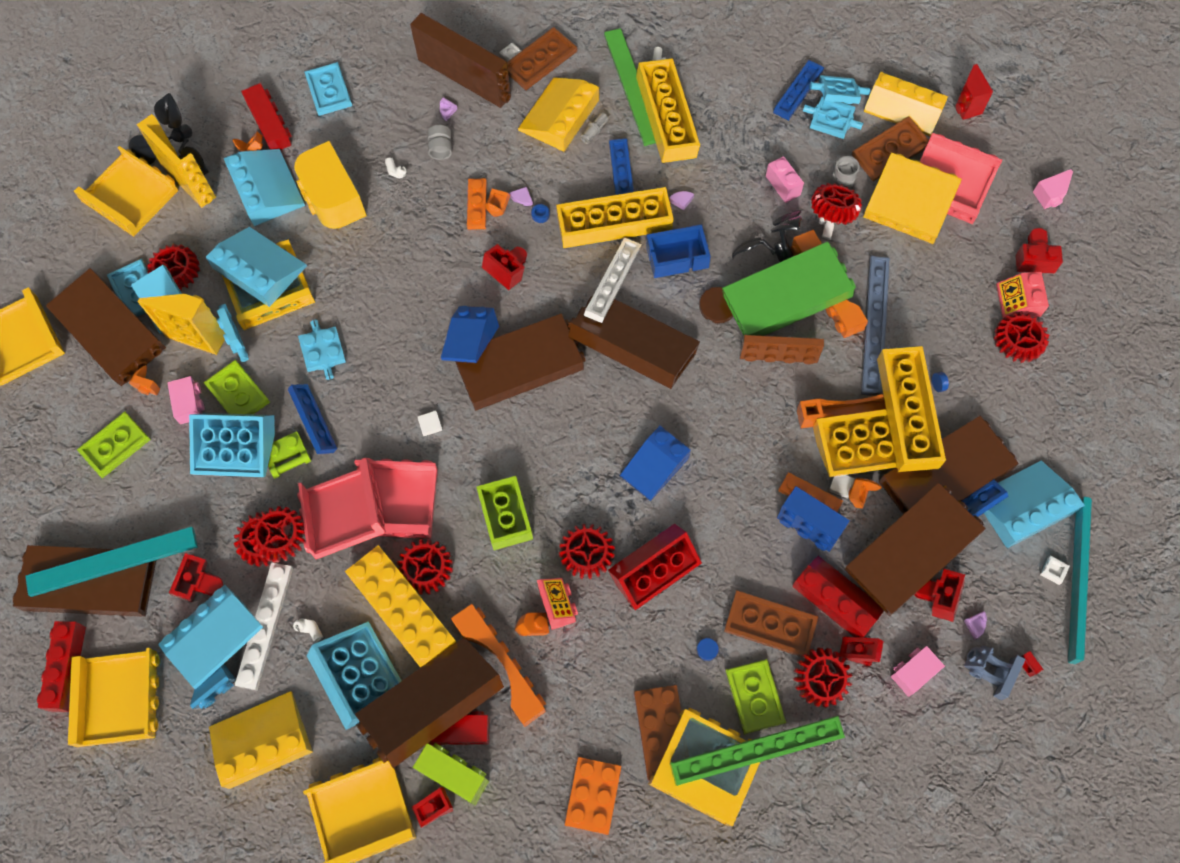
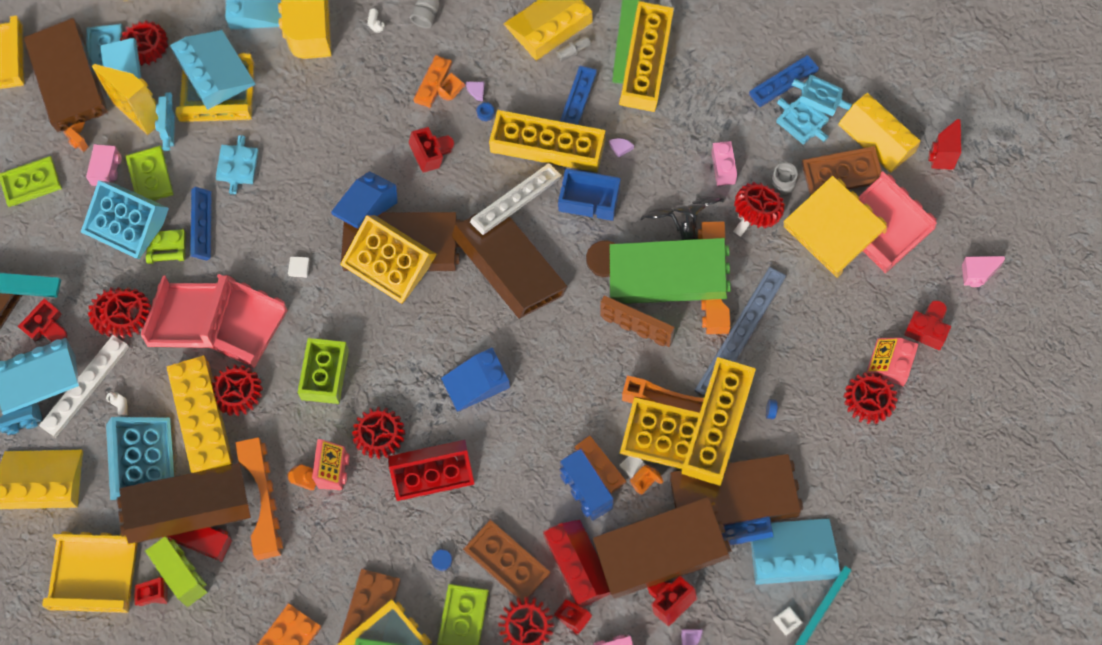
camera: 25 degrees right, 0 degrees up
(518, 380) = (387, 258): none -> yellow slope

